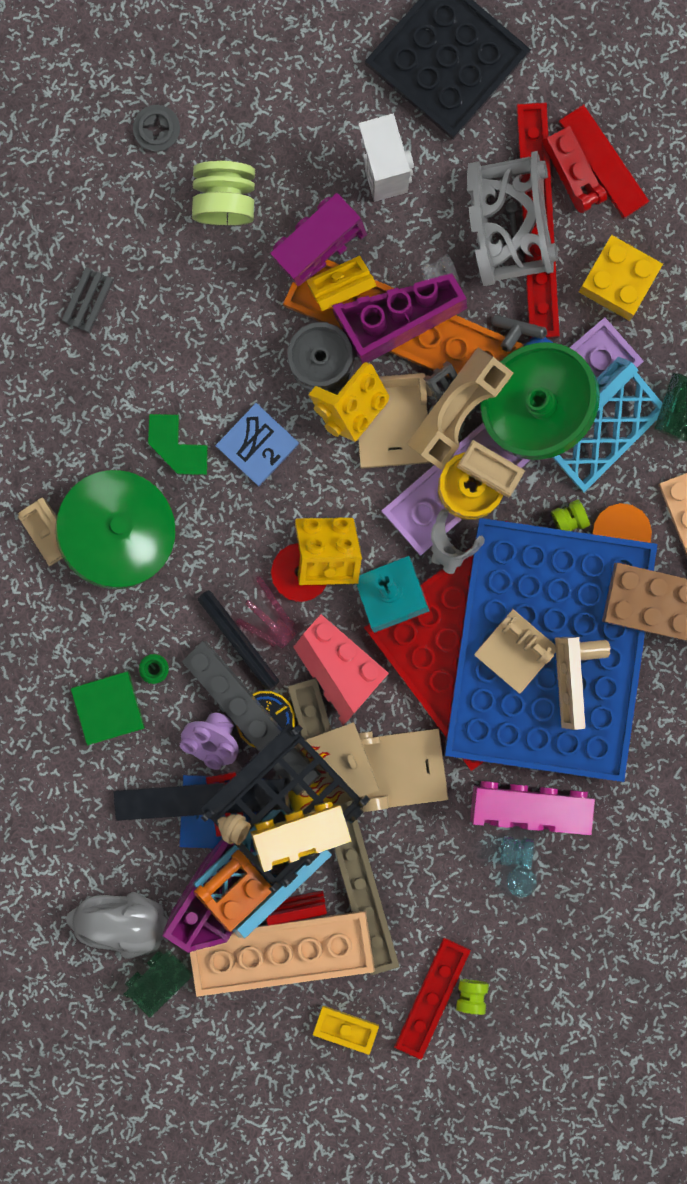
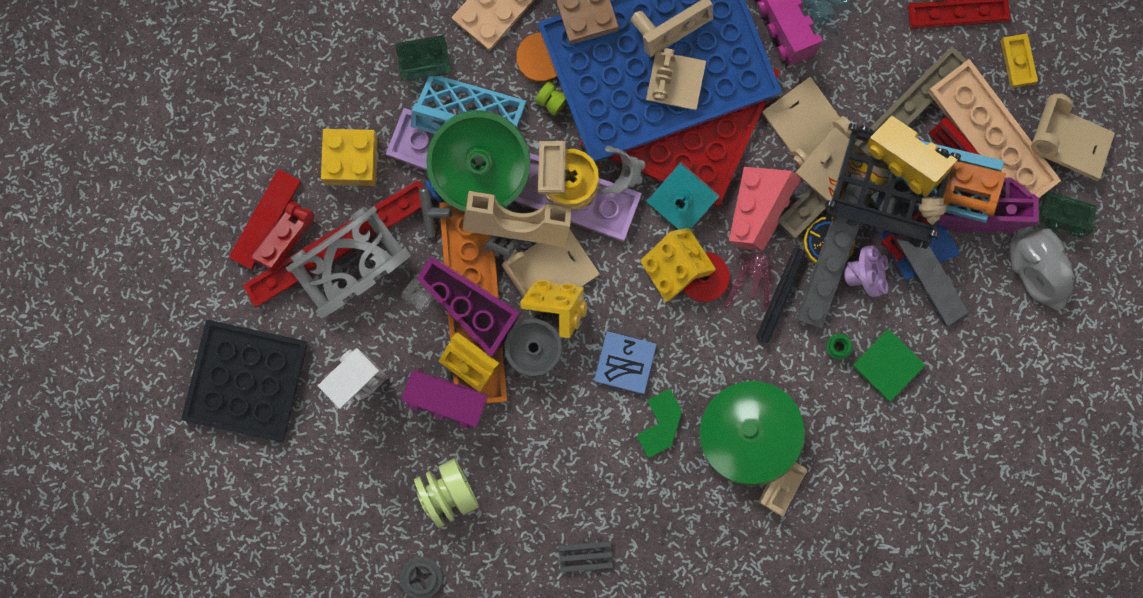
camera: 120 degrees left, 5 degrees down
(235, 1032) = (1071, 139): none -> tan door

